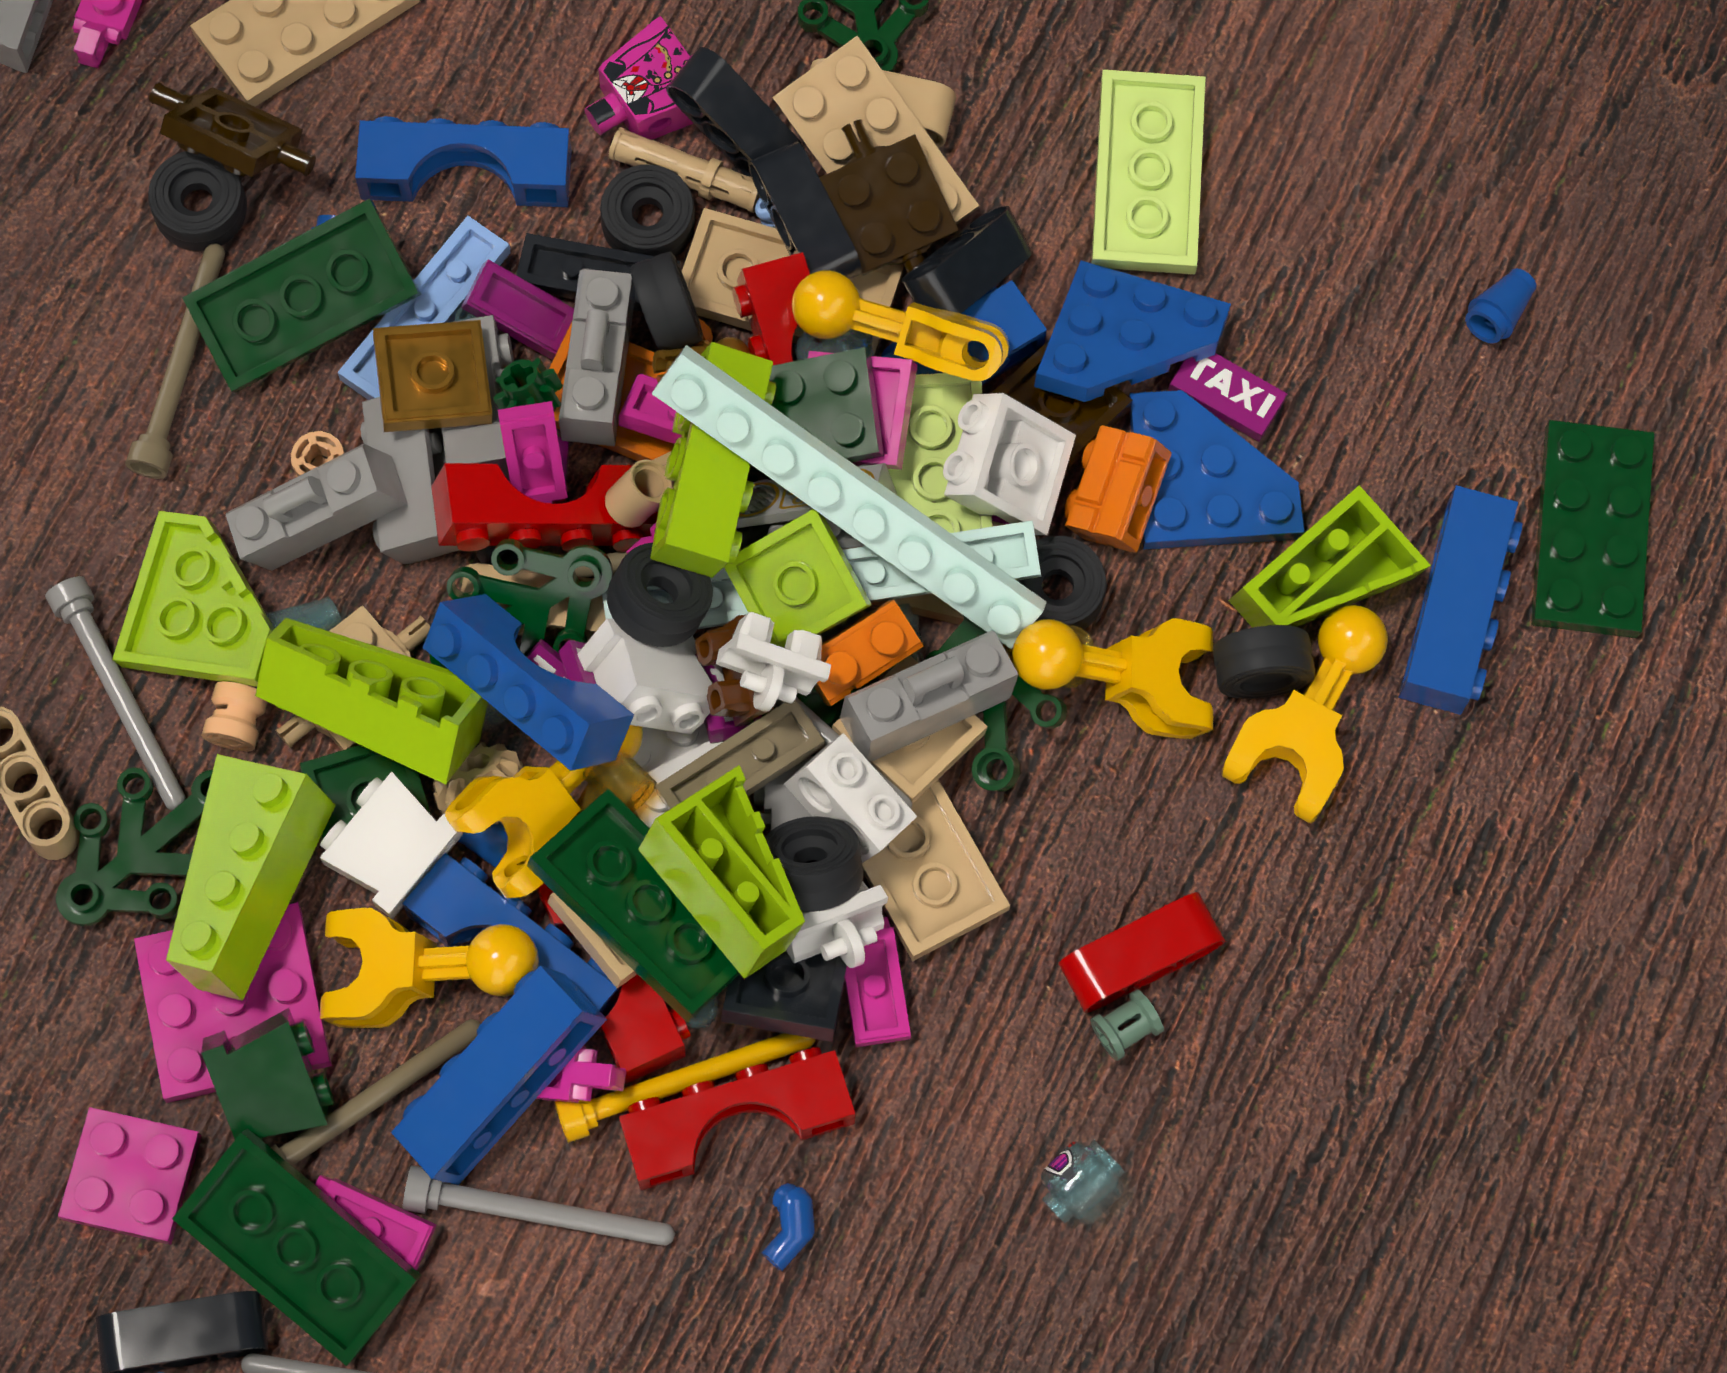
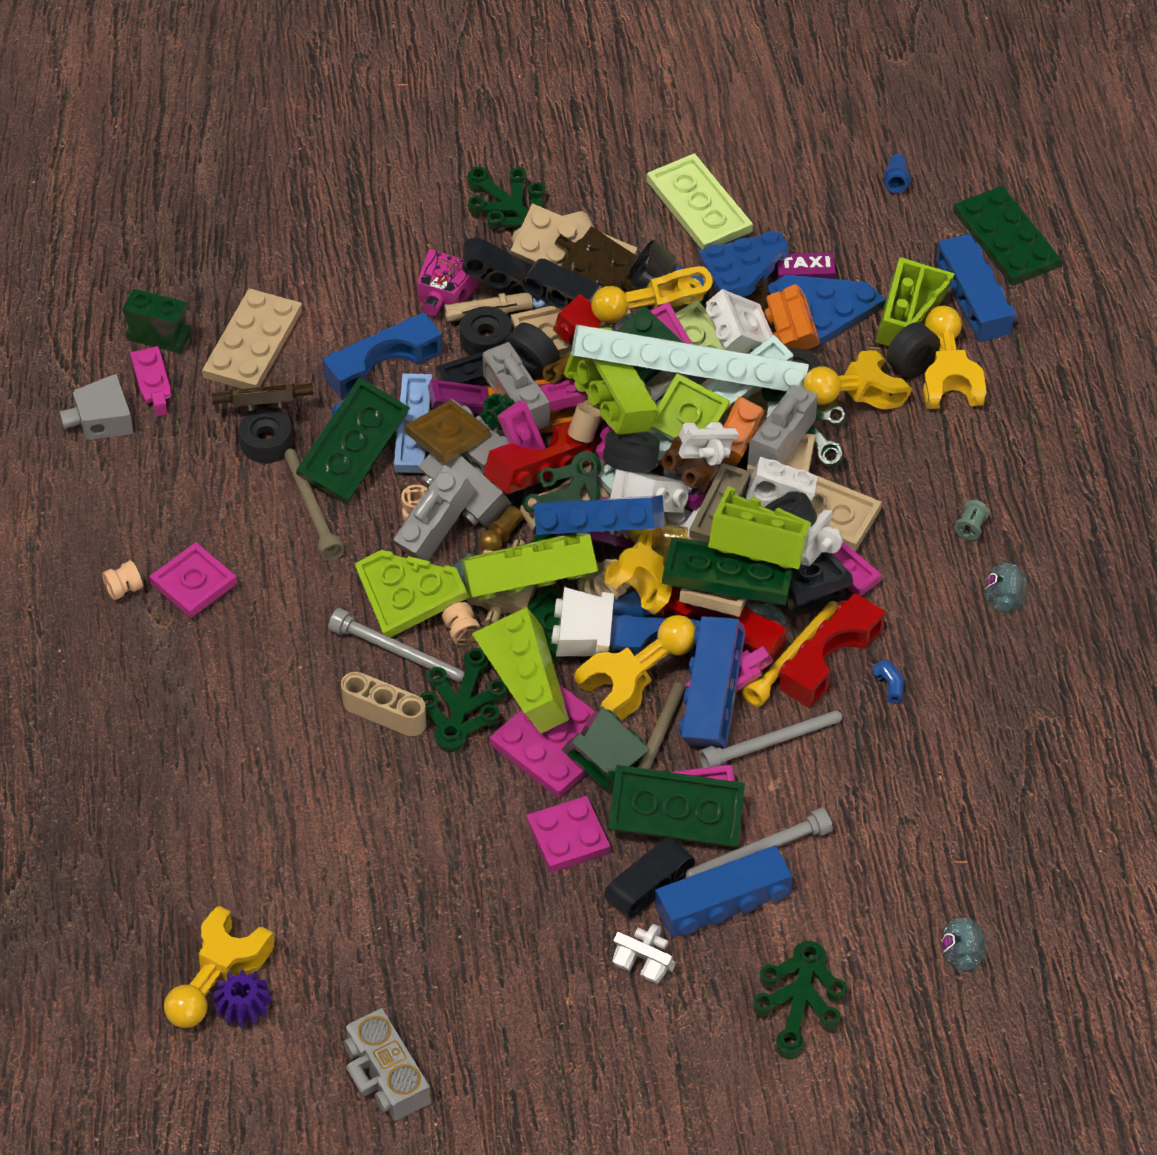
camera: 30 degrees left, 20 degrees down
(384, 596) = (500, 530): none -> pearl gold pin
(1141, 952) = (954, 489): red beam -> none

